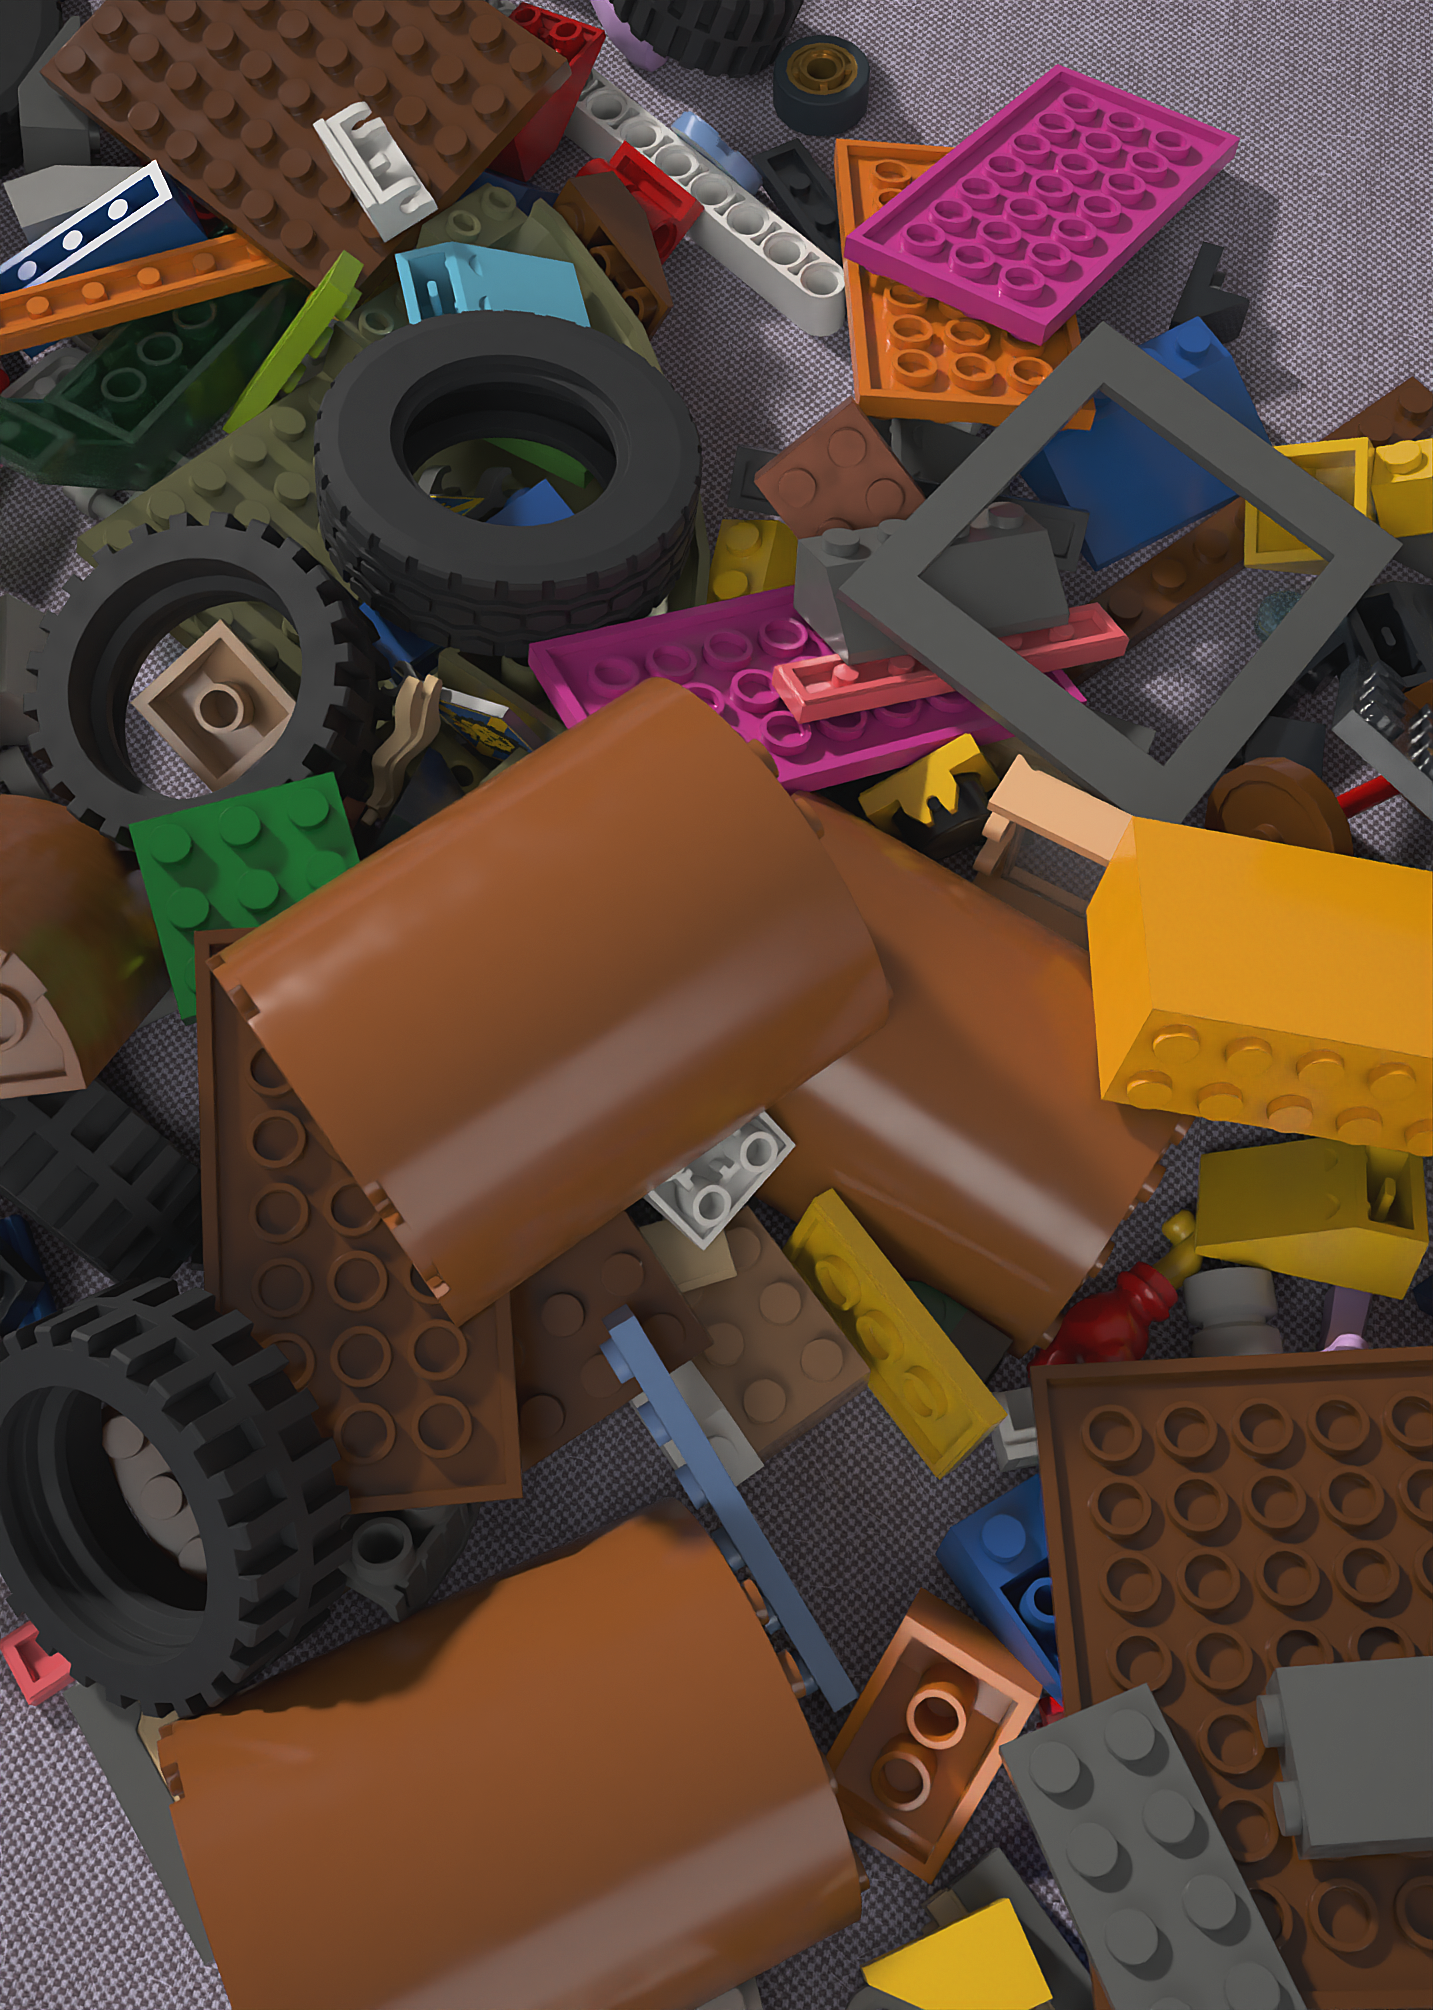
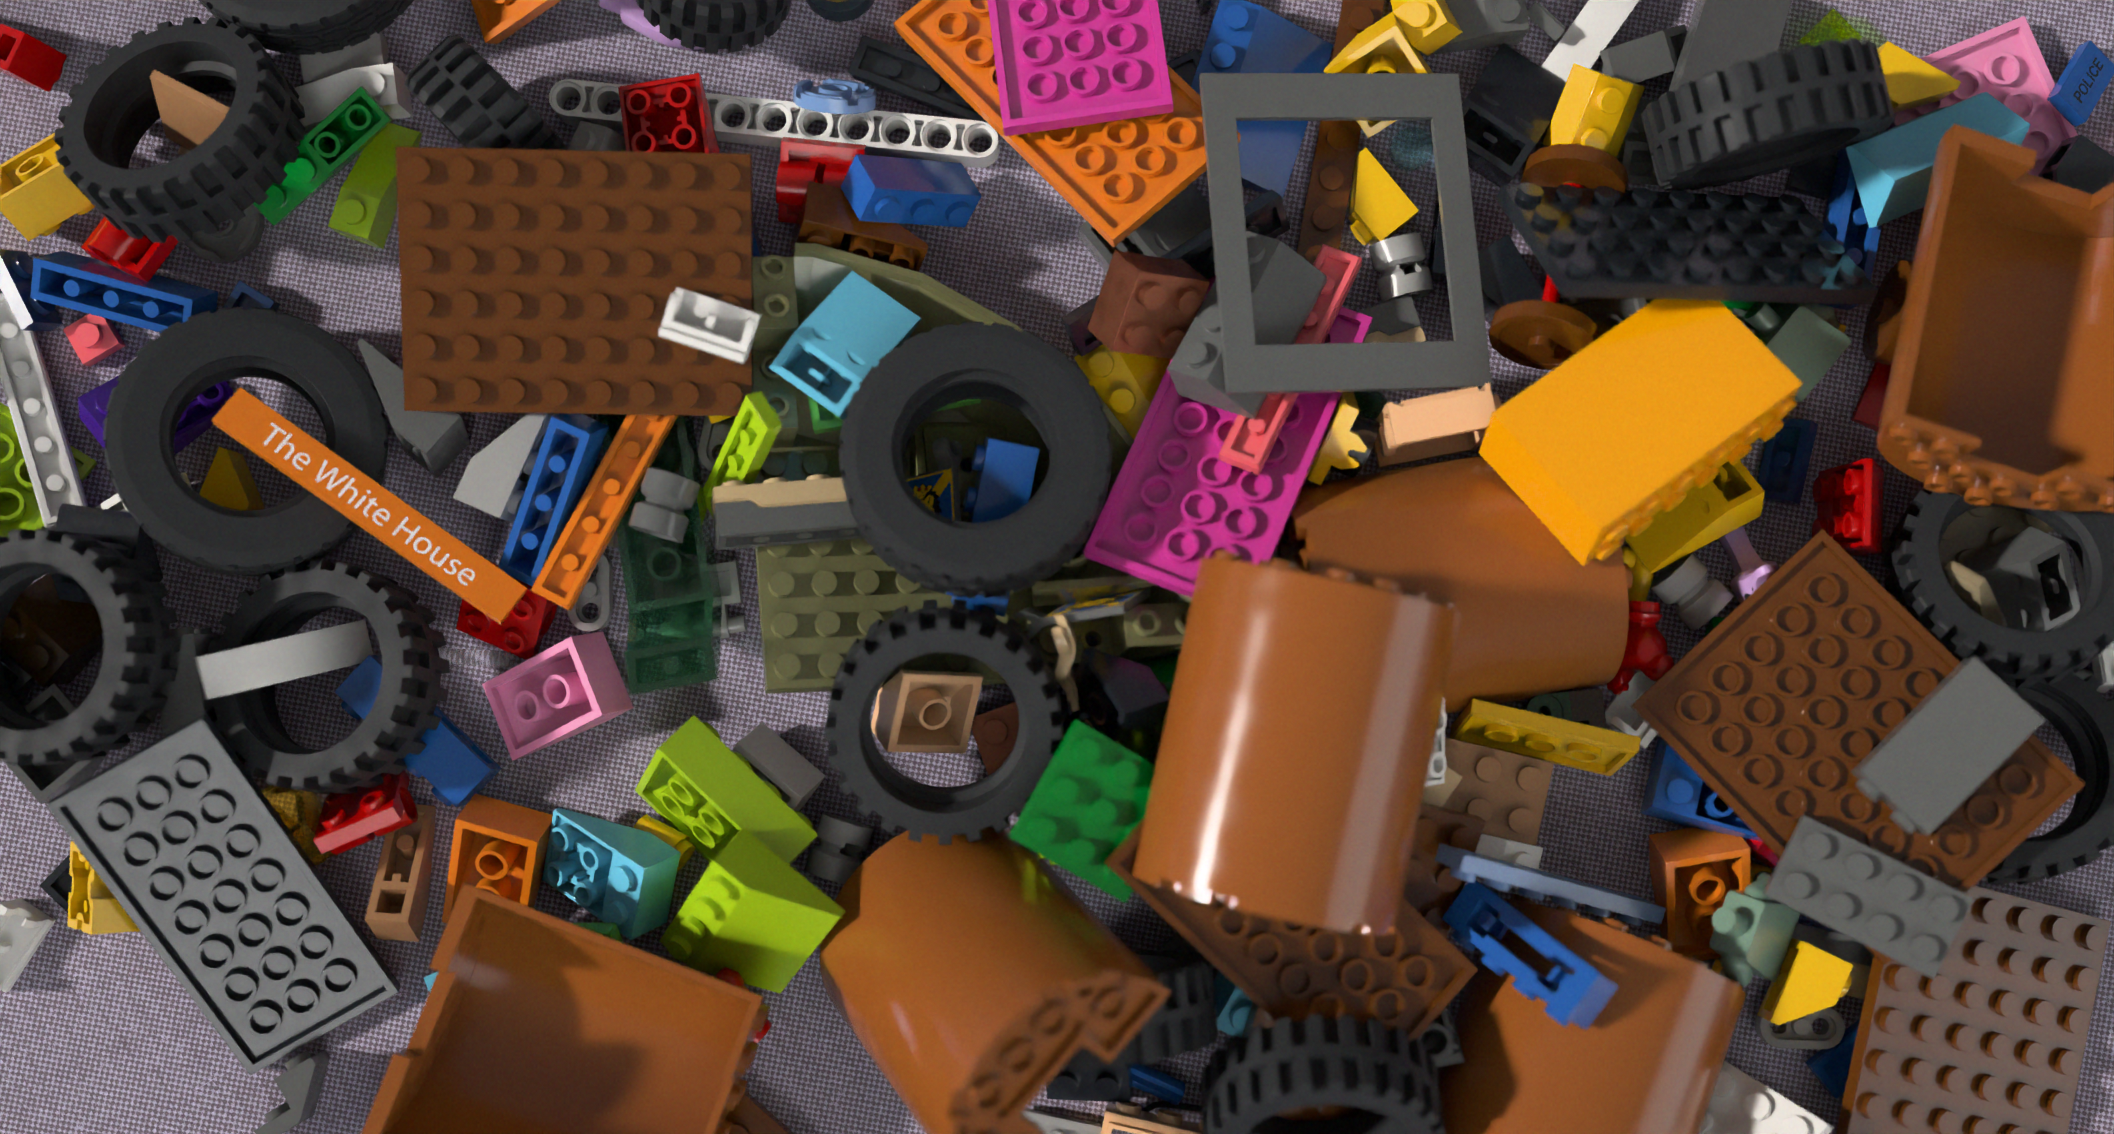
camera: 45 degrees left, 20 degrees up
(174, 316) = (664, 505): none -> dark grey wheel
(256, 402) = (781, 512): none -> dark grey piece
(594, 1606) = (1579, 995): none -> blue brick
(705, 258) = (910, 191): none -> blue brick
(944, 1826) = (1752, 931): none -> sand green torso
(1173, 701) = (1401, 267): none -> light grey wheel
(1198, 635) = (1376, 202): none -> yellow slope

